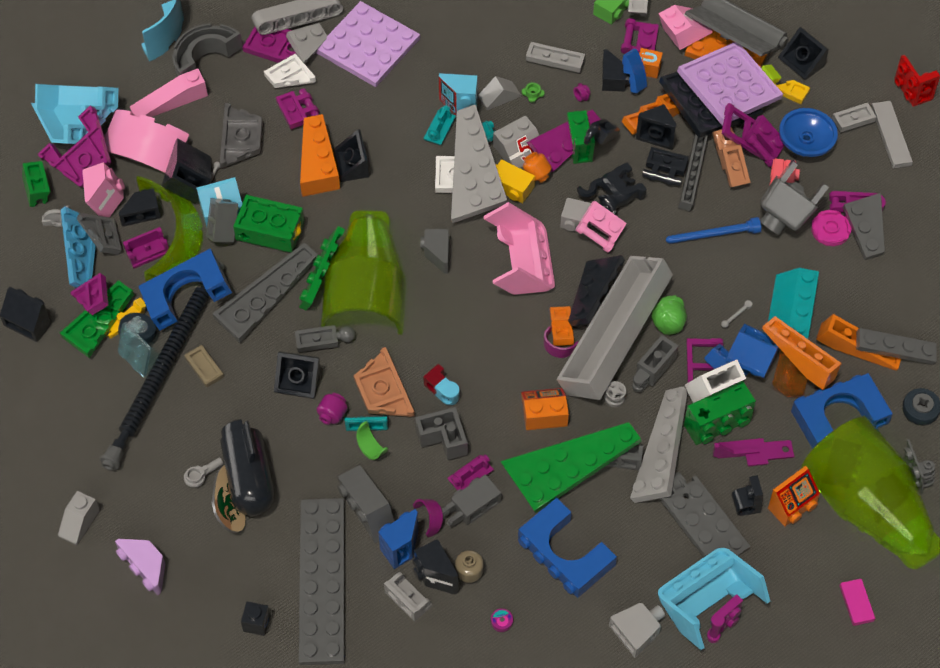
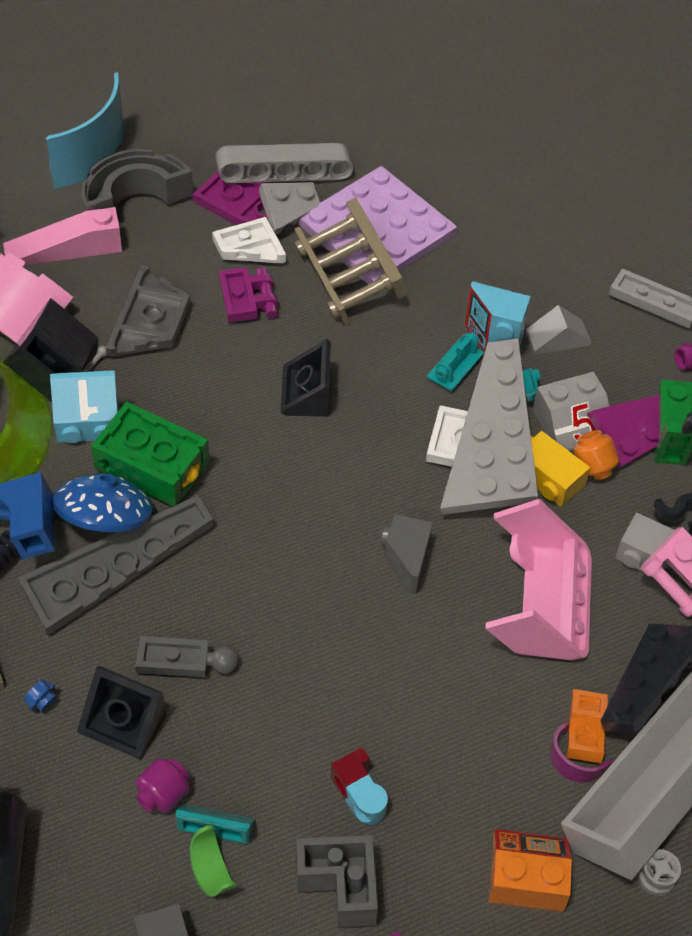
camera: 10 degrees right, 5 degrees down
(221, 220) = (77, 430): dark grey hinge -> none
(247, 376) = (40, 696): none -> blue plate
(249, 259) = (102, 503): none -> blue dish
(317, 162) = (253, 377): orange wedge -> none
(321, 265) = (213, 534): green wing -> none
(364, 57) = (377, 260): none -> dark tan fence
(365, 271) = (282, 565): clear neon green windscreen -> none
(382, 387) = (258, 768): nougat wing -> none
(533, 87) = (611, 341): bright green plate -> none

